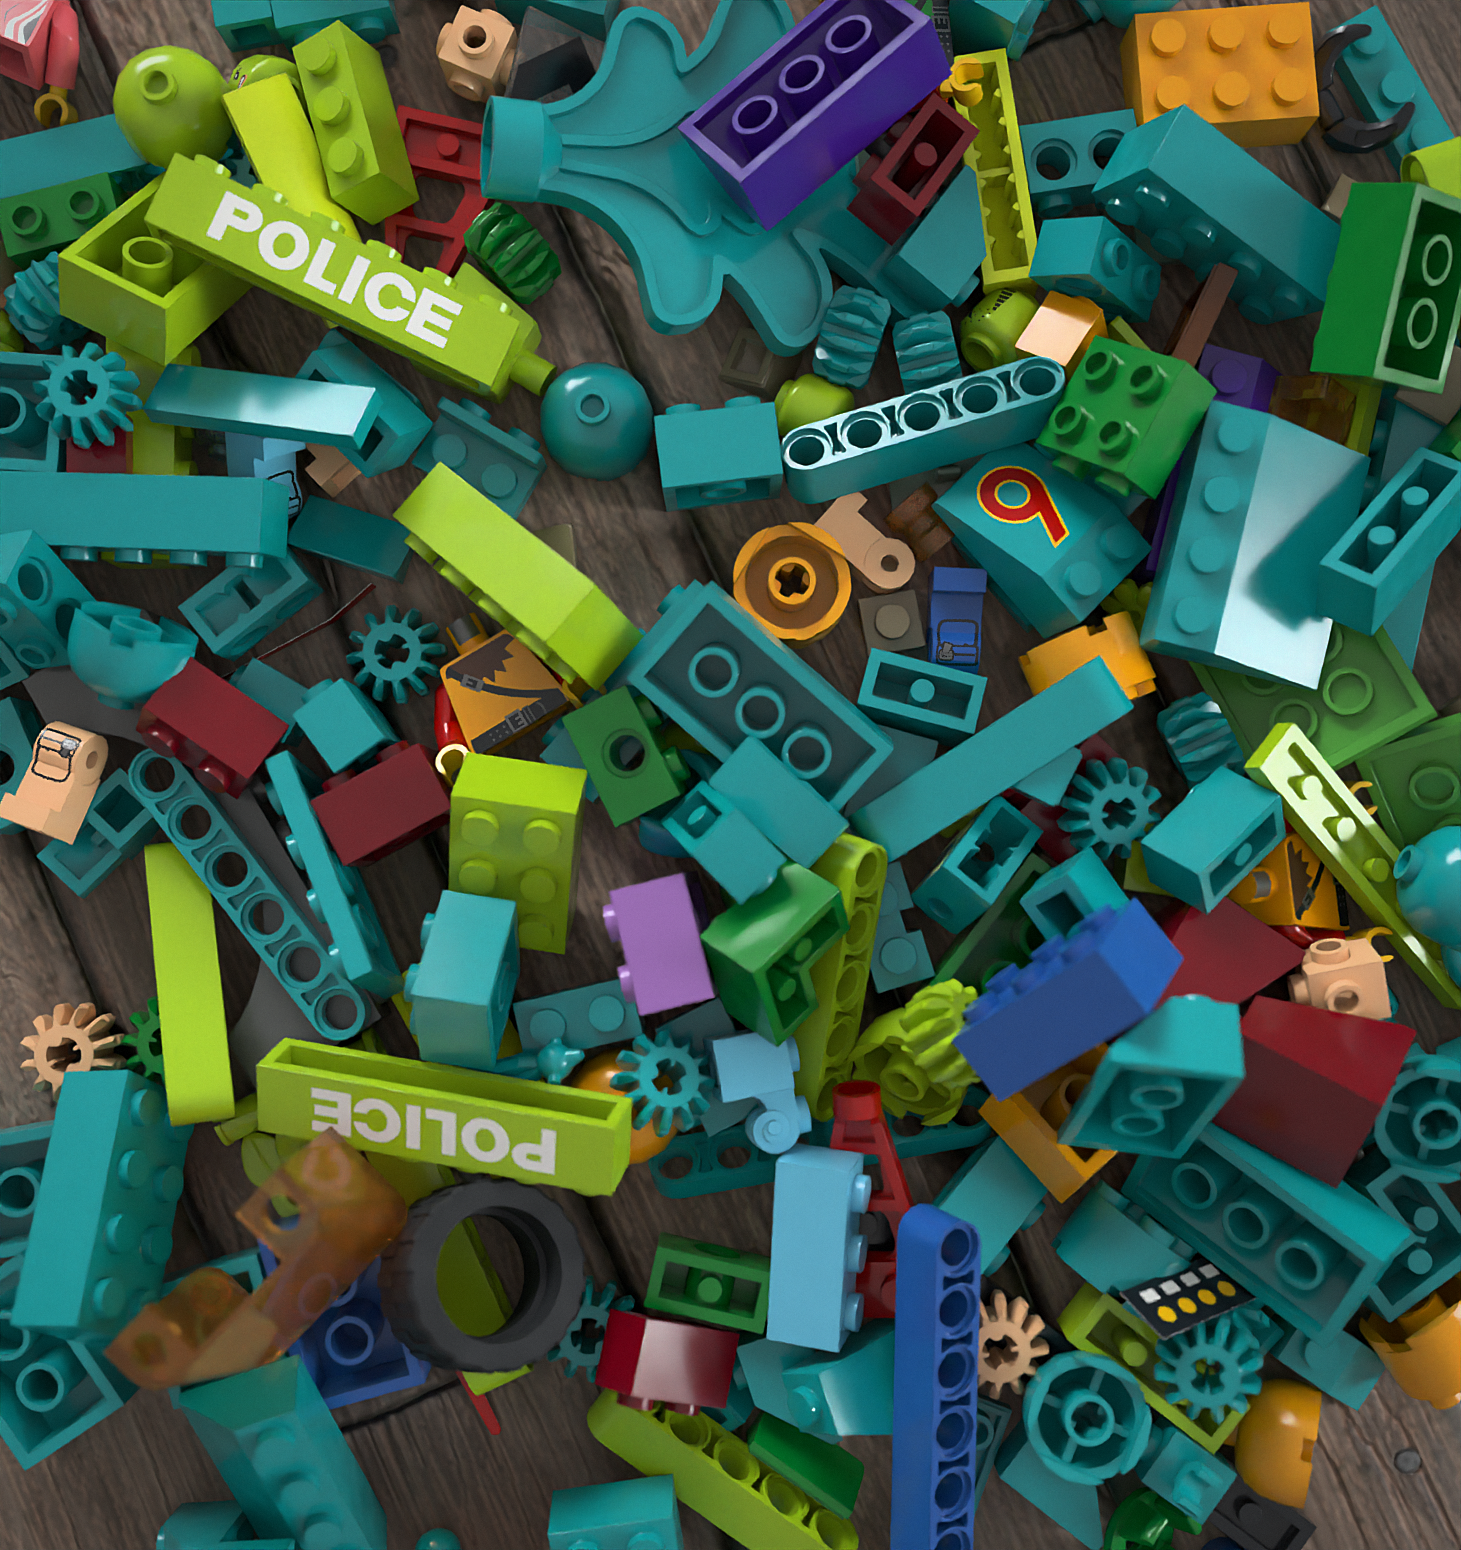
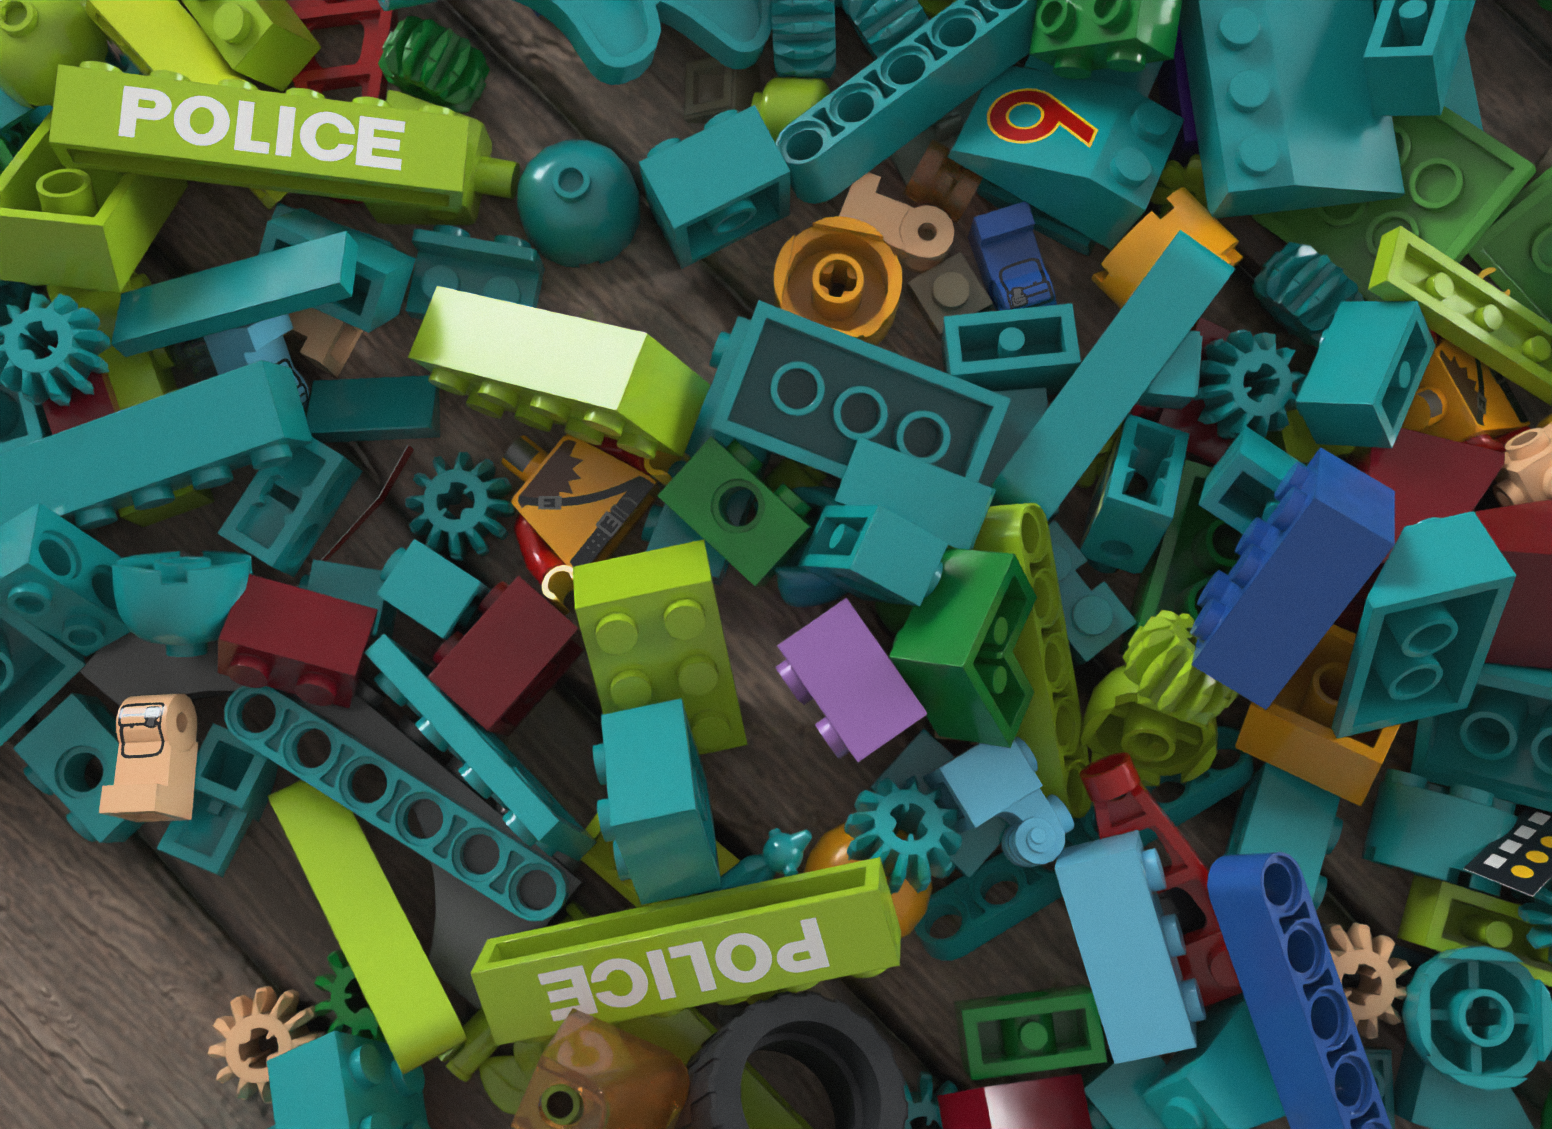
camera: 20 degrees left, 5 degrees down
(578, 1016) = (789, 800): teal brick -> none

